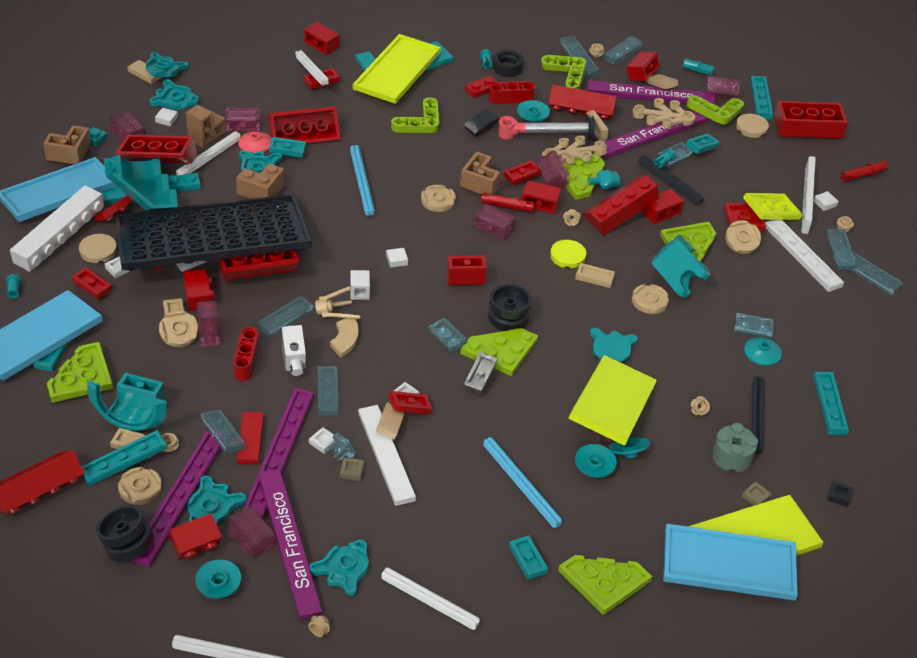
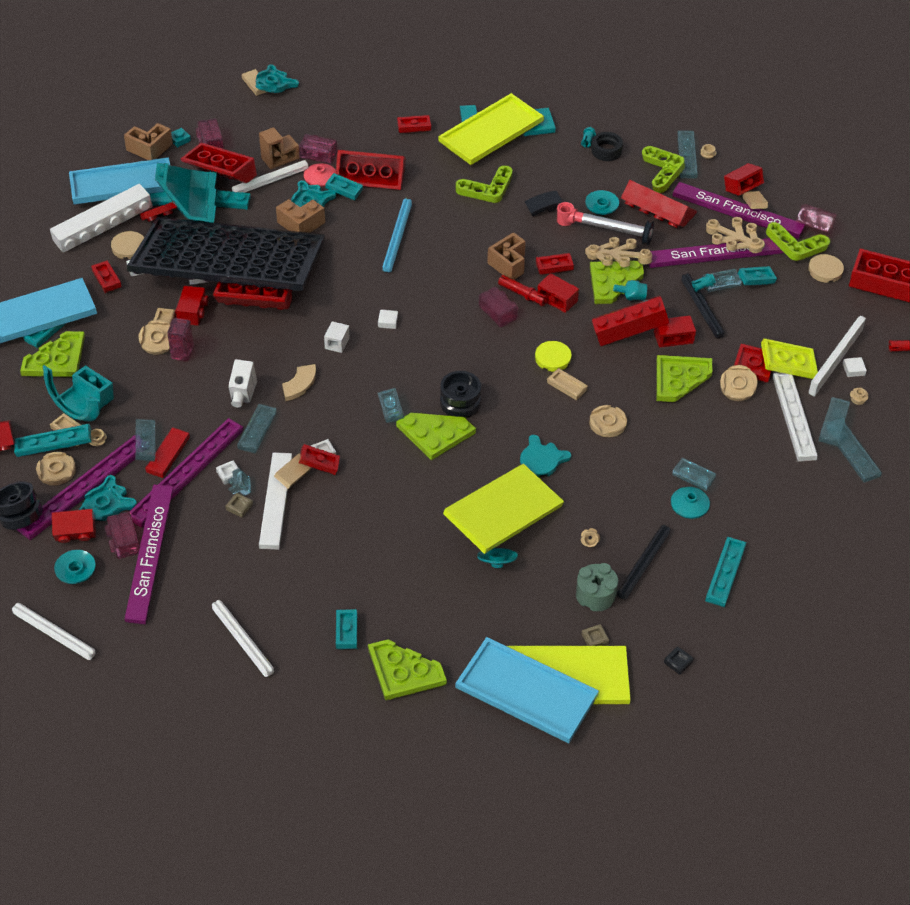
camera: 25 degrees right, 5 degrees up
(13, 282) = (42, 259): teal pin -> none
(166, 117) = (251, 131): white tile -> none
(174, 96) = (269, 113): teal tile -> none
(246, 354) = (202, 375): red beam -> none
(285, 316) = (258, 348): clear light blue tile -> none
(312, 68) = (408, 117): white axle -> none
(319, 625) = (137, 631): tan plate -> none
(321, 38) = (436, 82): red brick -> none
(324, 306) = (294, 349): tan plant -> none
(344, 566) = (186, 587): teal tile -> none
(438, 198) = (460, 270): tan tile -> none
(466, 270) = (440, 347): red brick -> none
(479, 87) = (568, 165): red plate -> none
(480, 373) = (399, 449): flat silver plate -> none
(511, 92) = (591, 178): red beam -> none
(523, 482) = (382, 561): medium azure axle -> none
(553, 170) = (583, 268): clear pink brick -> none
(571, 221) = (574, 323): tan plate -> none
(595, 460) = (461, 555): teal dish -> none
(600, 129) = (657, 233): tan tile -> none
(623, 50) = (737, 157): clear light blue tile -> none
(678, 265) = (647, 395): teal piece -> none
(698, 66) = (806, 192): teal axle -> none
(761, 96) = (856, 239): teal tile -> none

